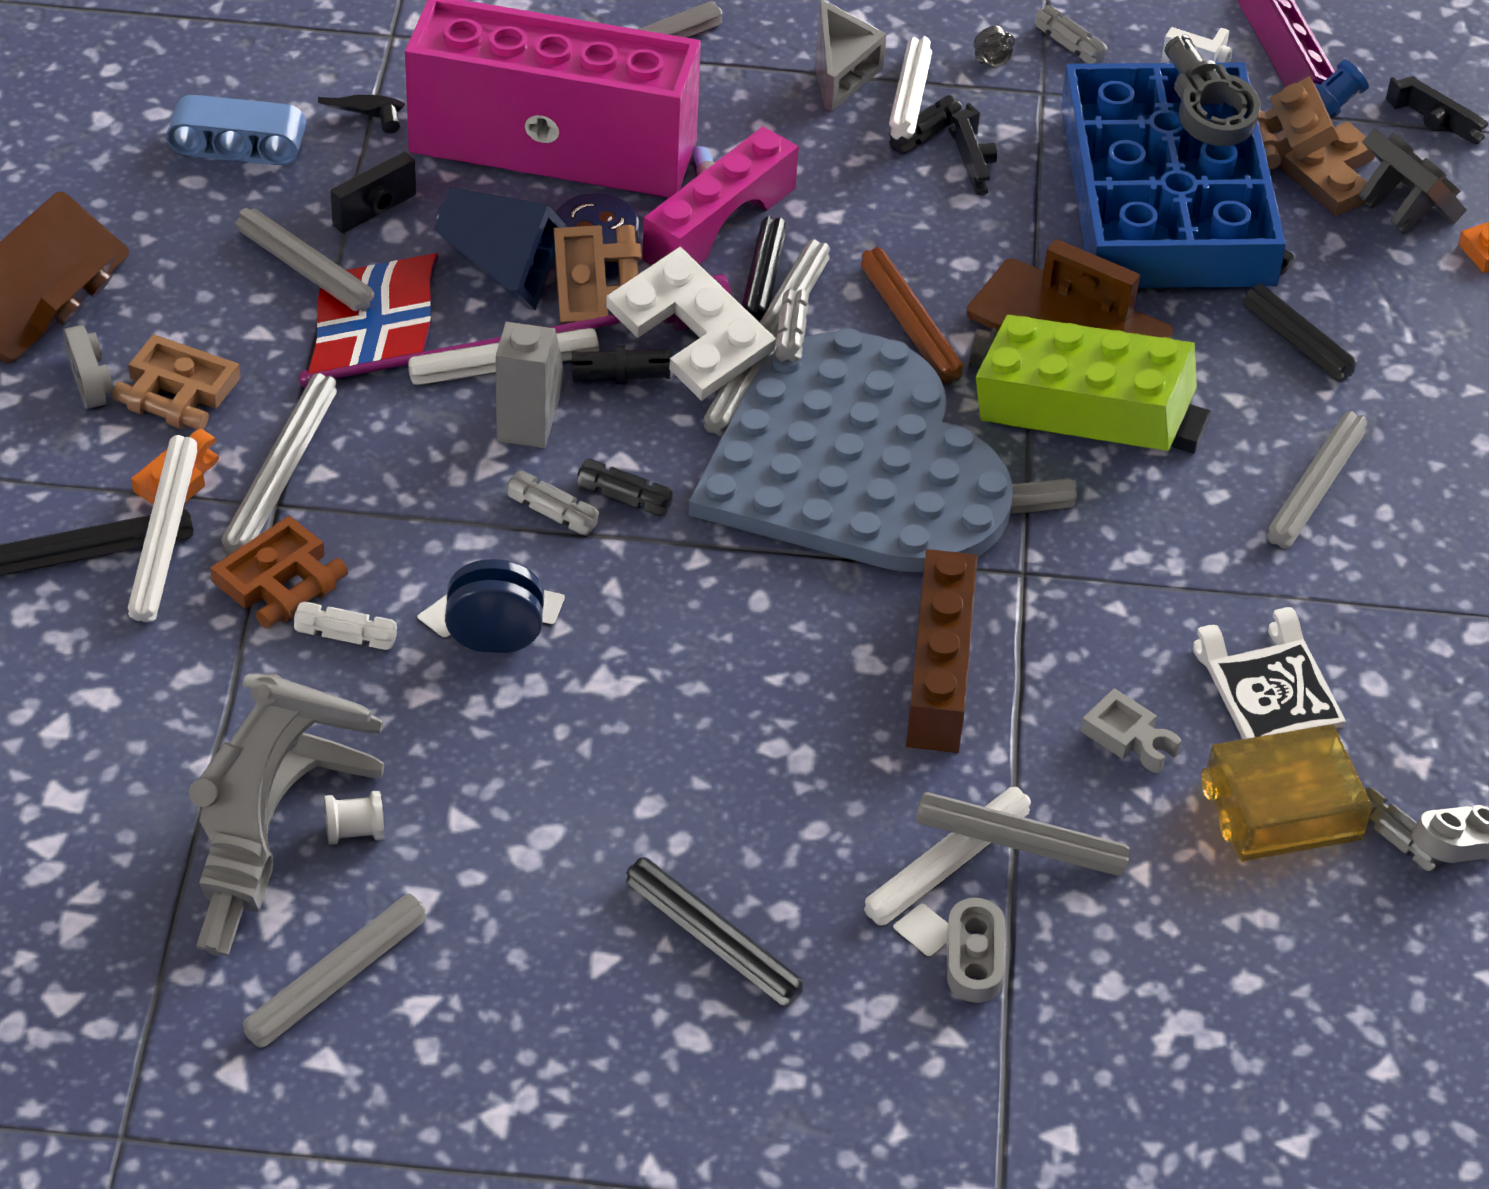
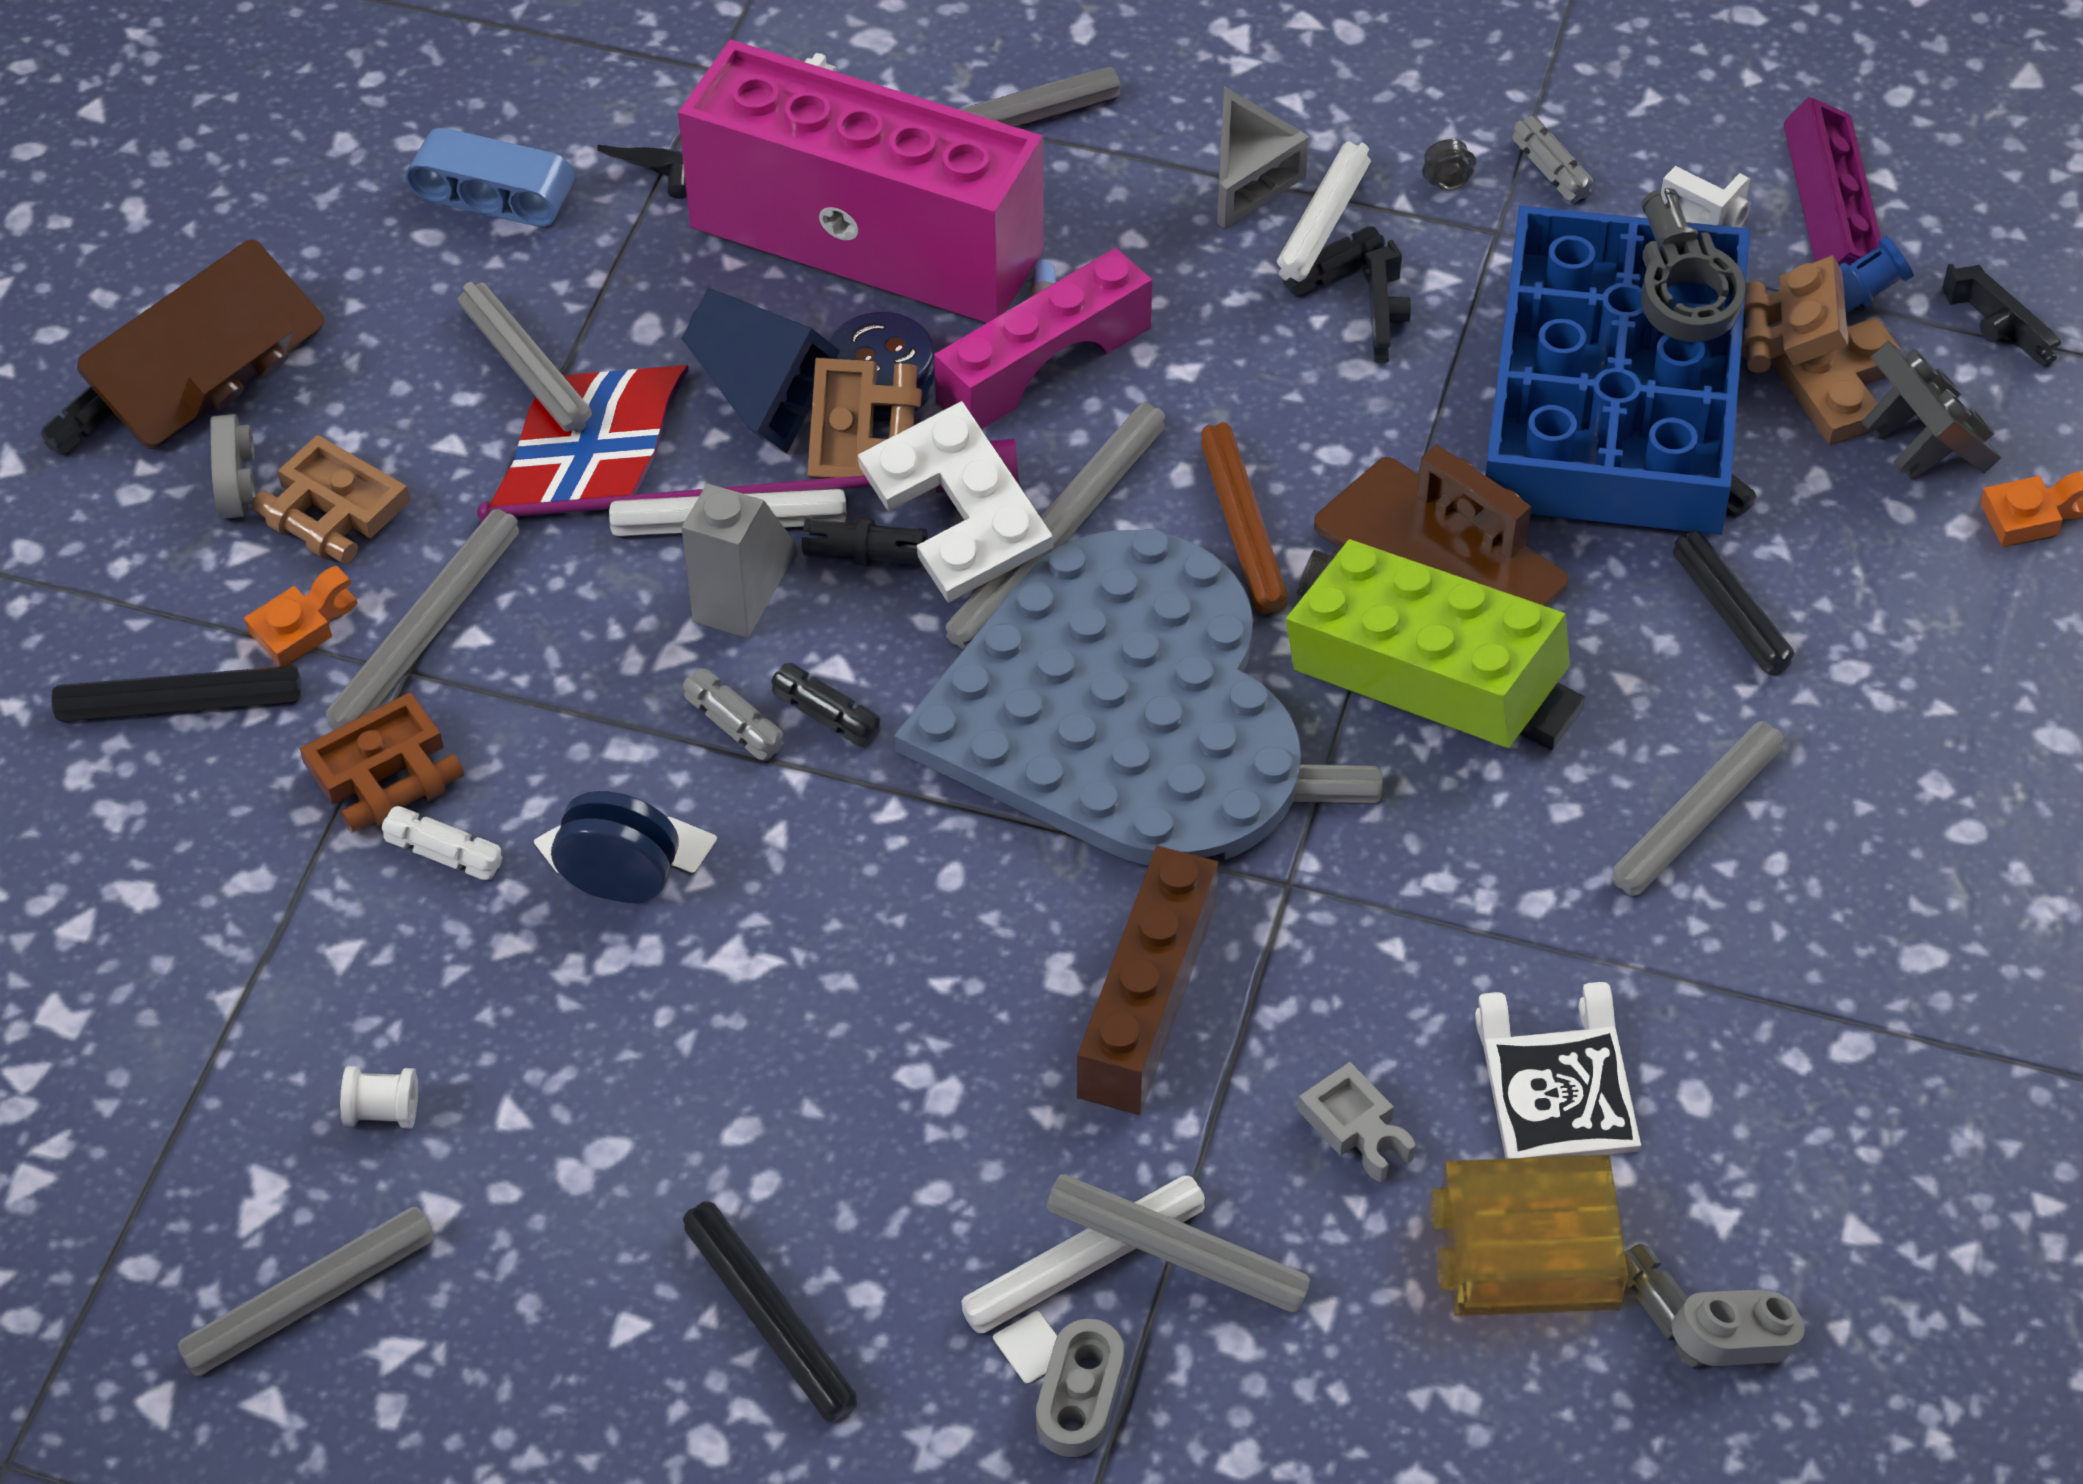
camera: 15 degrees right, 5 degrees up
(162, 529) = (256, 691): white axle -> none
(250, 779) = (249, 1043): light grey piece -> none
(373, 192) = (629, 278): black plate -> none
(764, 266) = (1077, 433): black axle -> none
(792, 325) = (1081, 518): light grey axle -> none

